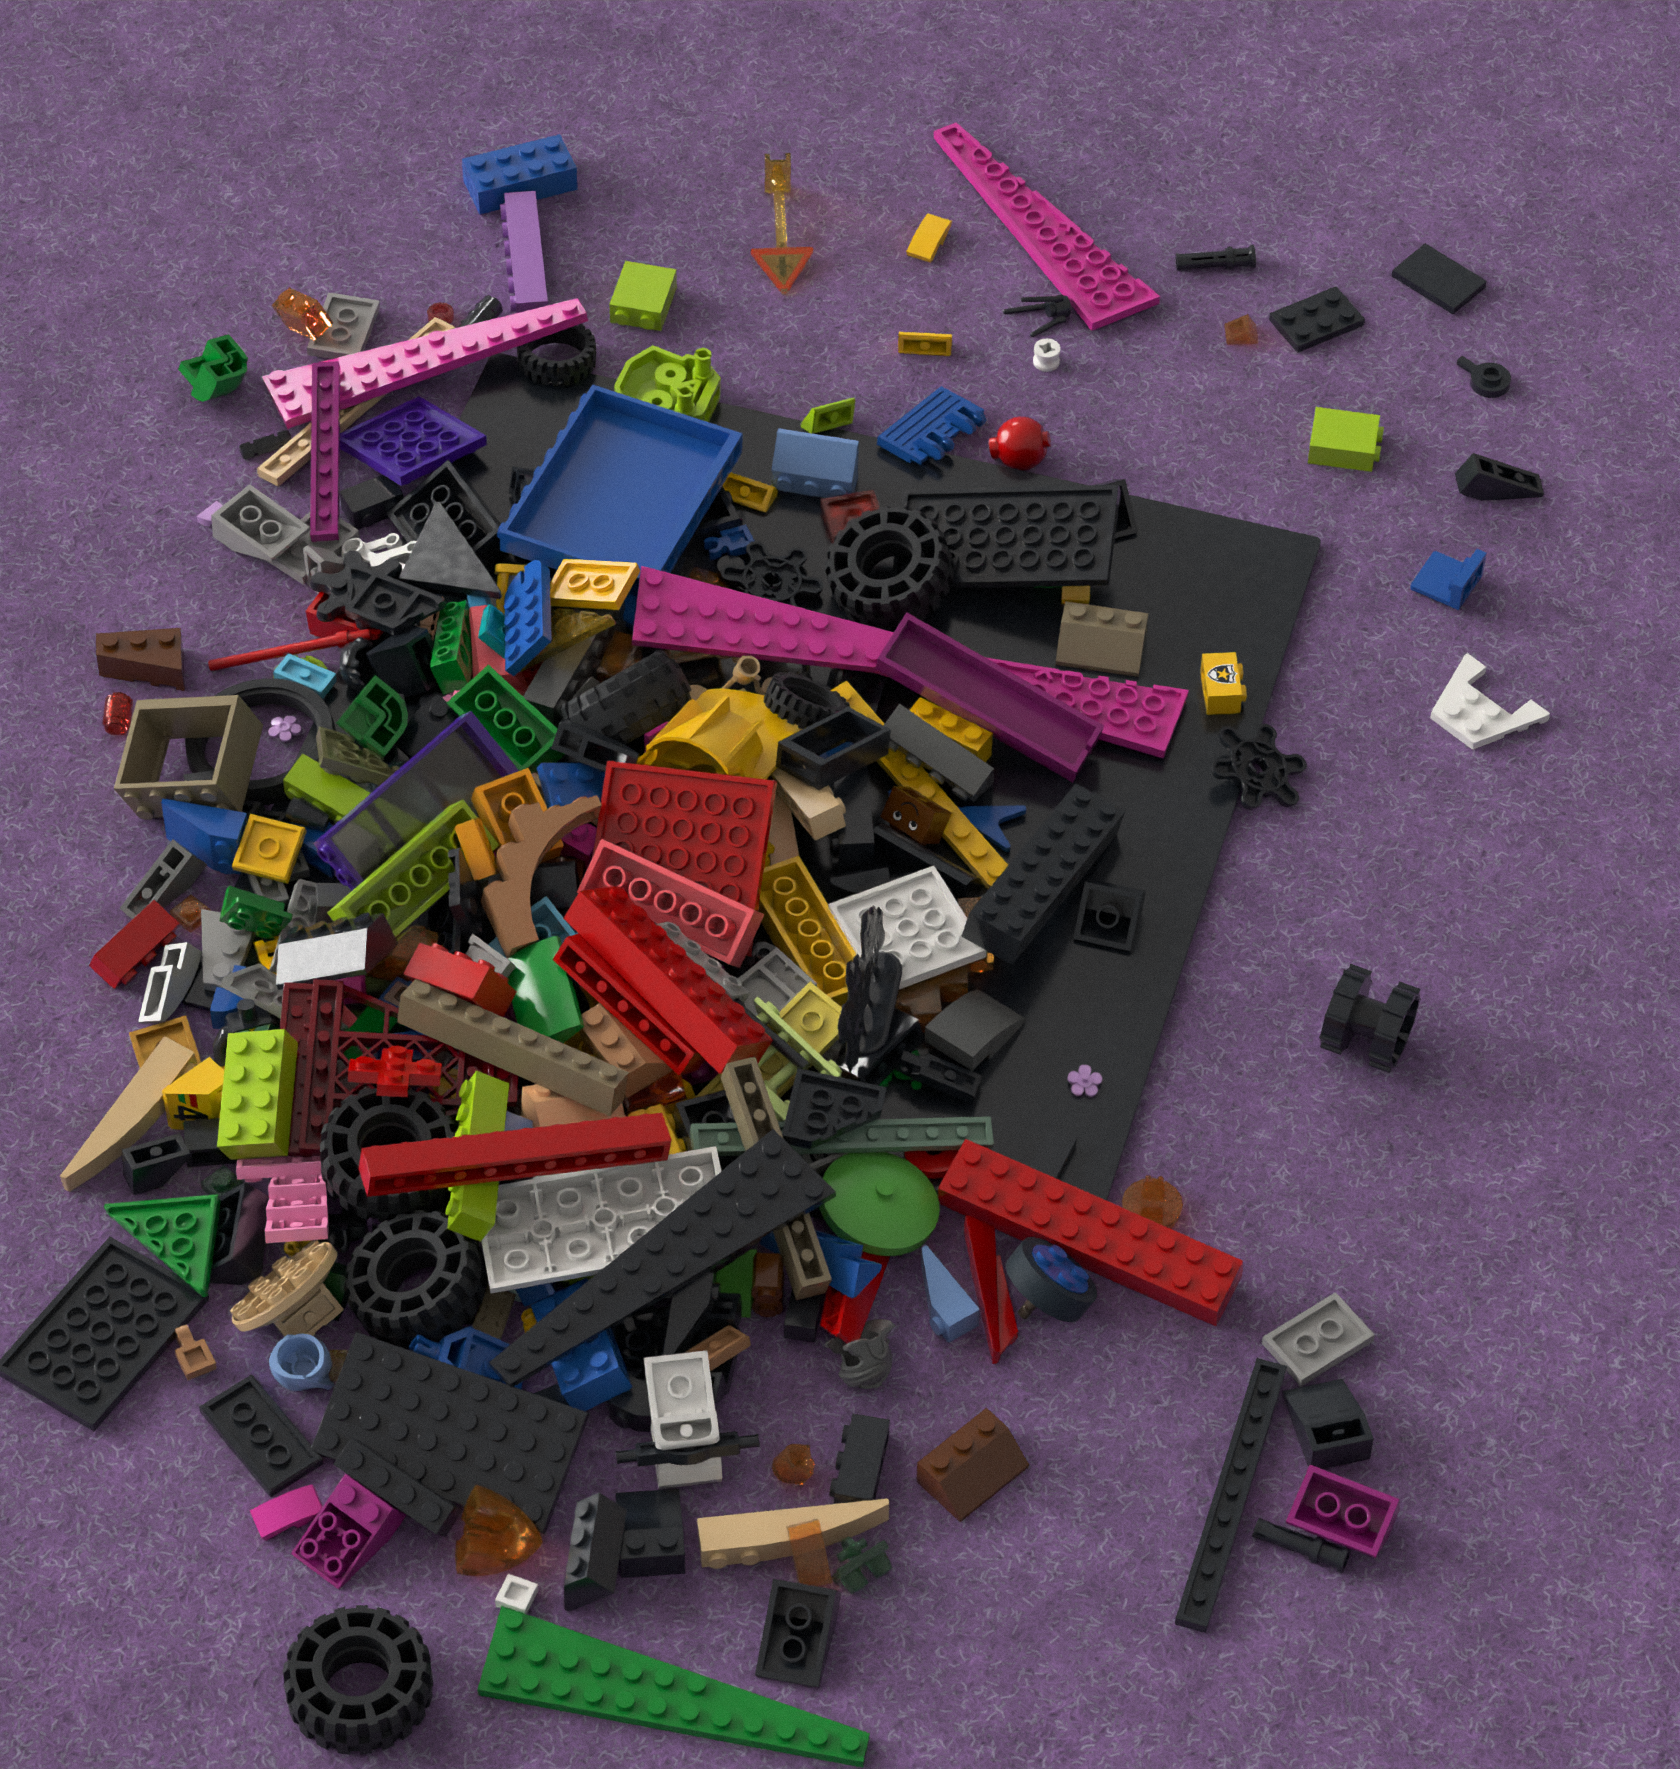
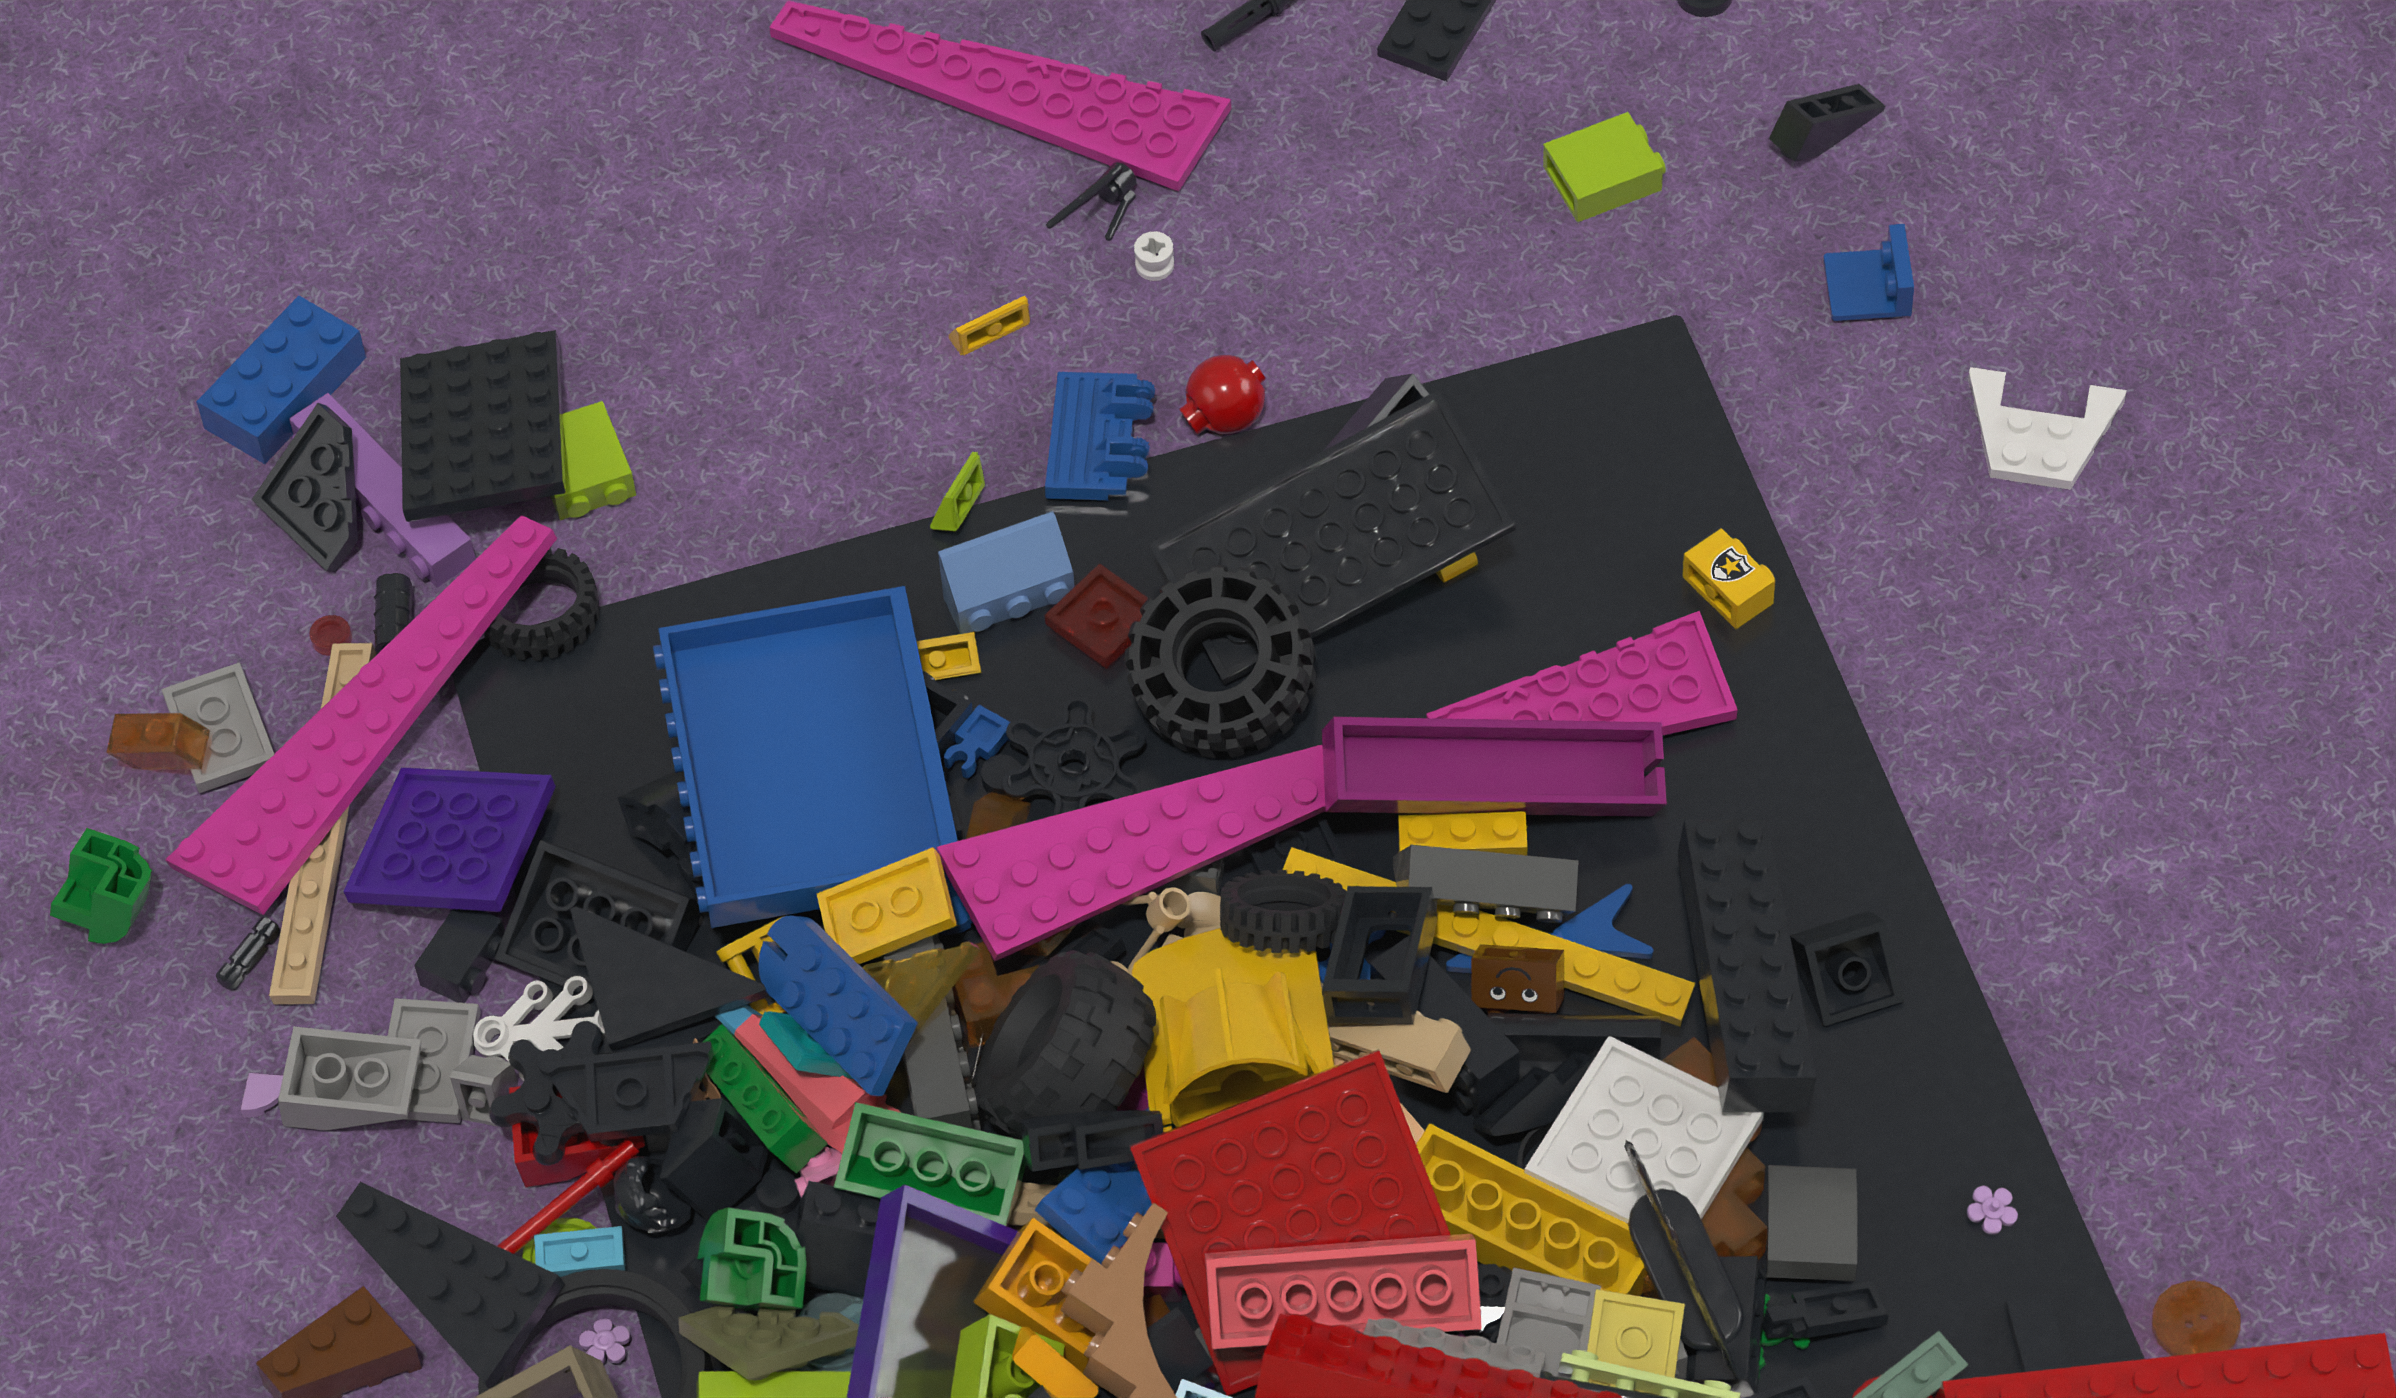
camera: 30 degrees left, 5 degrees up
(229, 649) = (463, 1285): none -> black wing
(325, 452) = (355, 920): magenta plate -> none
(487, 233) = (314, 489): none -> black plate
(601, 247) = (481, 426): none -> black plate
(690, 391) = (756, 569): lime brick -> none
(783, 262) = (716, 314): clear yellow piece -> none
(928, 237) = (877, 176): yellow slope -> none
(1102, 639) = (1540, 603): dark tan slope -> none
(1241, 331) = (1359, 91): clear orange slope -> none
(1263, 752) = (1866, 647): black plate -> none
(1355, 1012) = (2291, 915): black piece -> none

